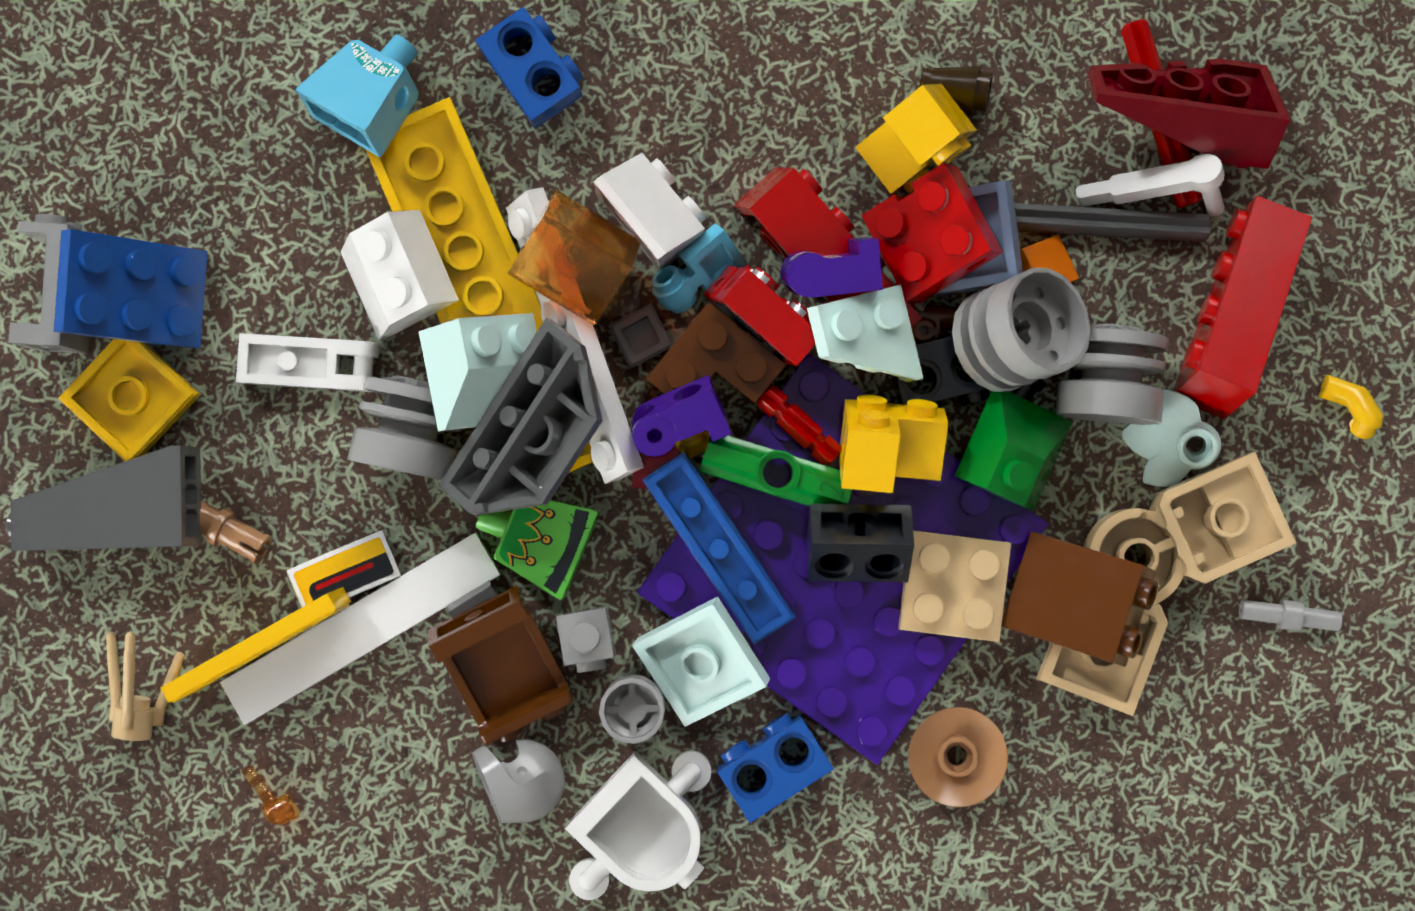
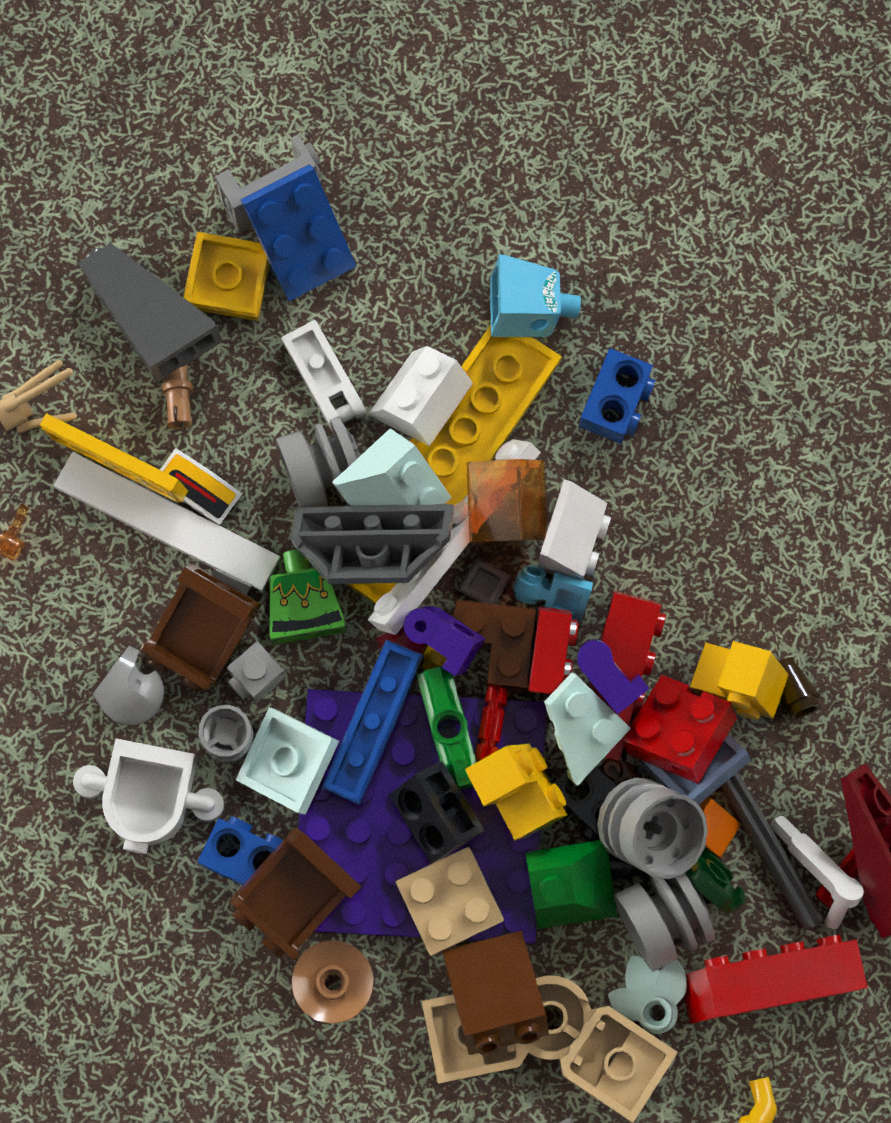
camera: 55 degrees right, 10 degrees down
(847, 747) = (292, 894): none -> reddish brown panel
(1114, 303) = (713, 881): none -> dark green plate

